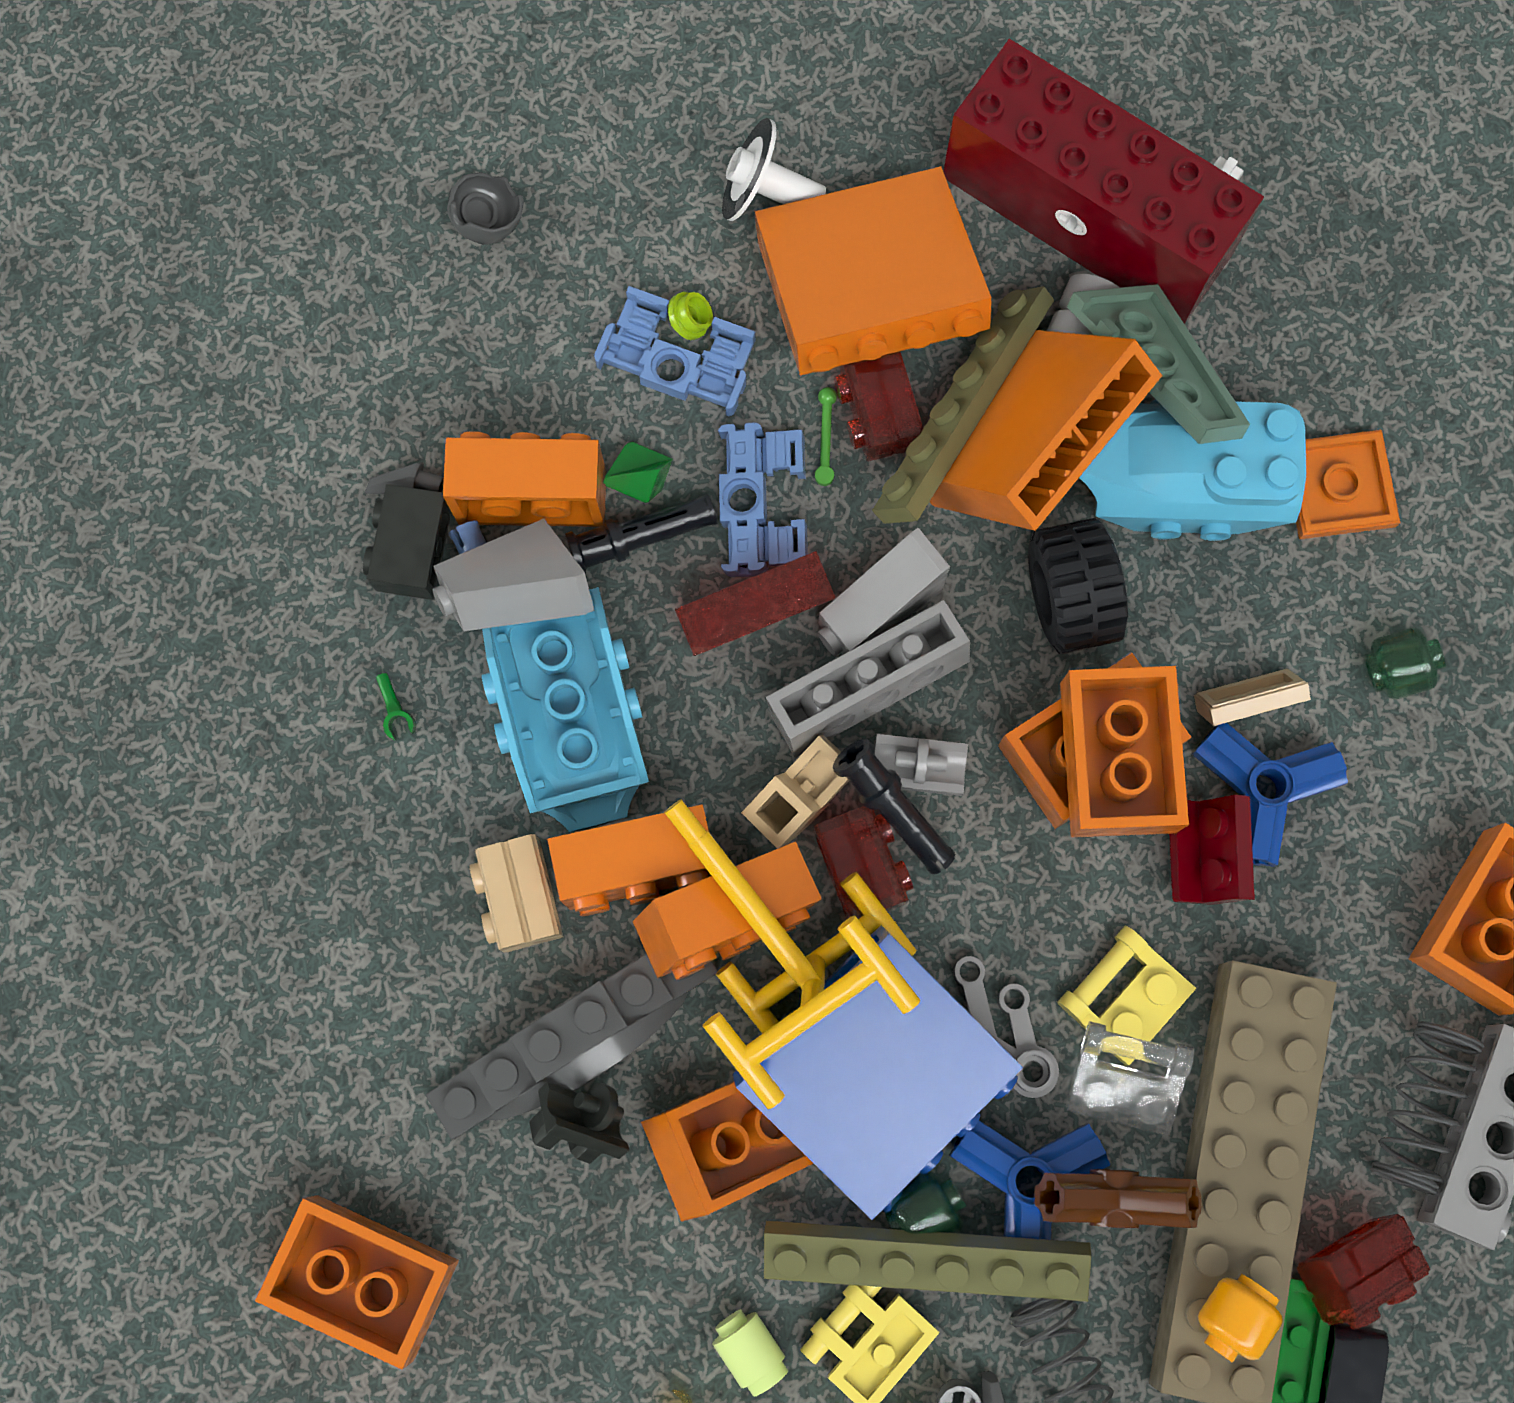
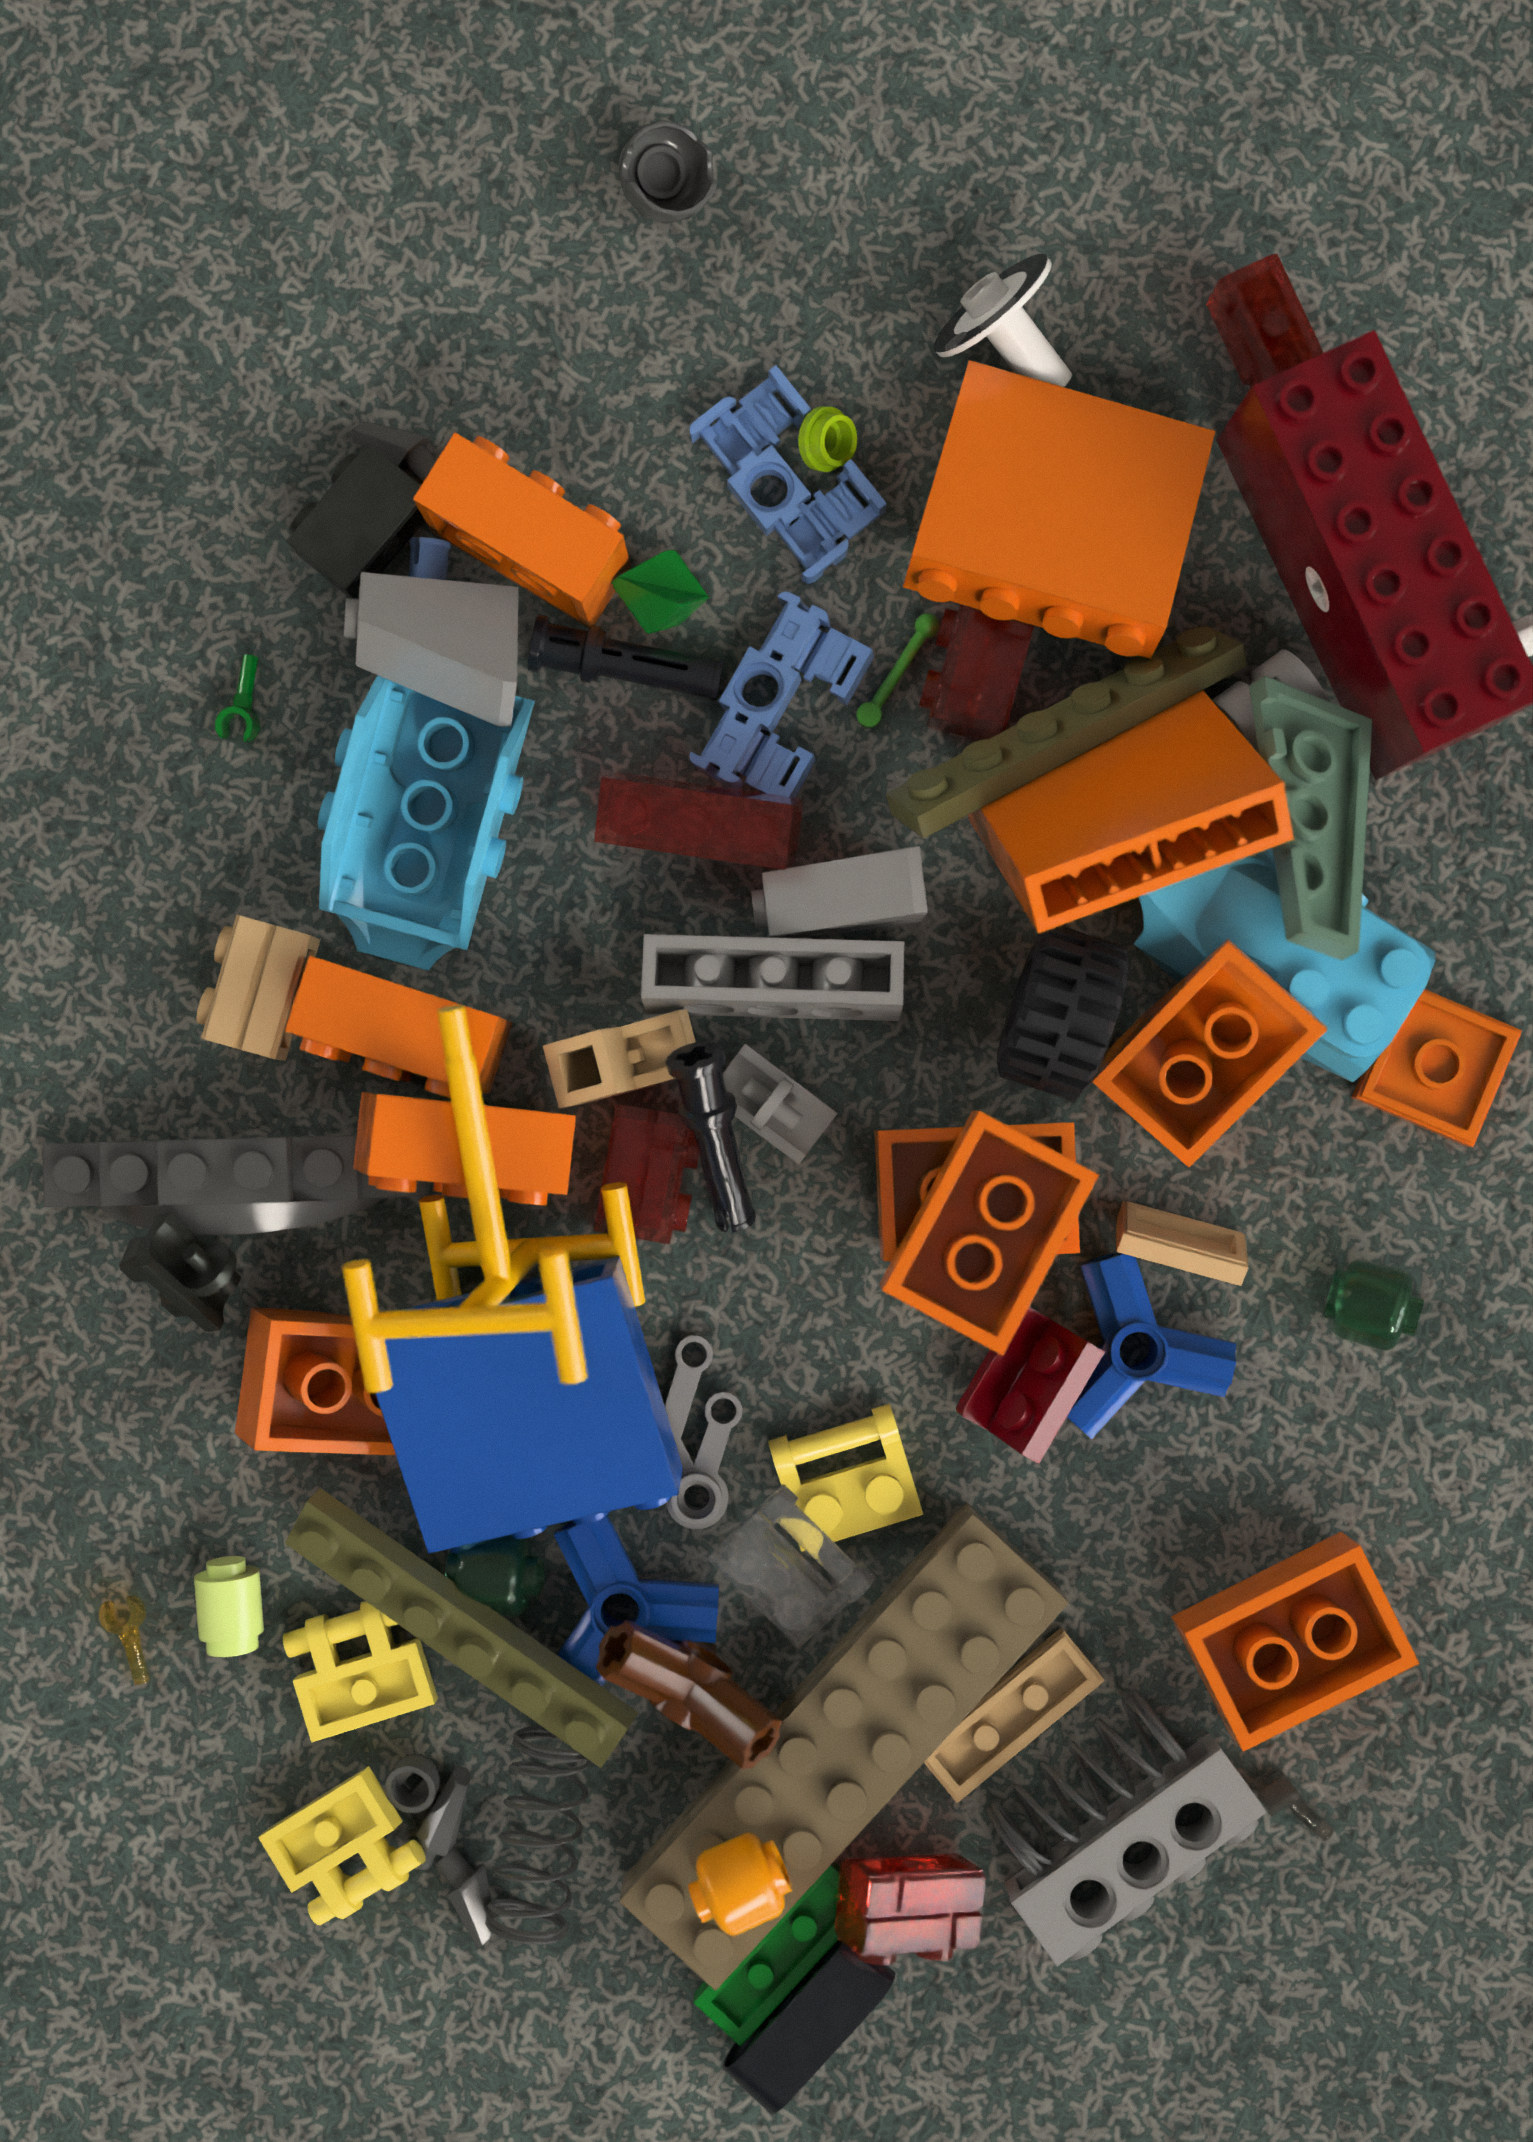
camera: 30 degrees right, 10 degrees up
(927, 85) = (1262, 321): none -> clear red brick
(1190, 553) = (1207, 1052): none -> orange slope
(1347, 1092) = (1014, 1713): none -> tan tile

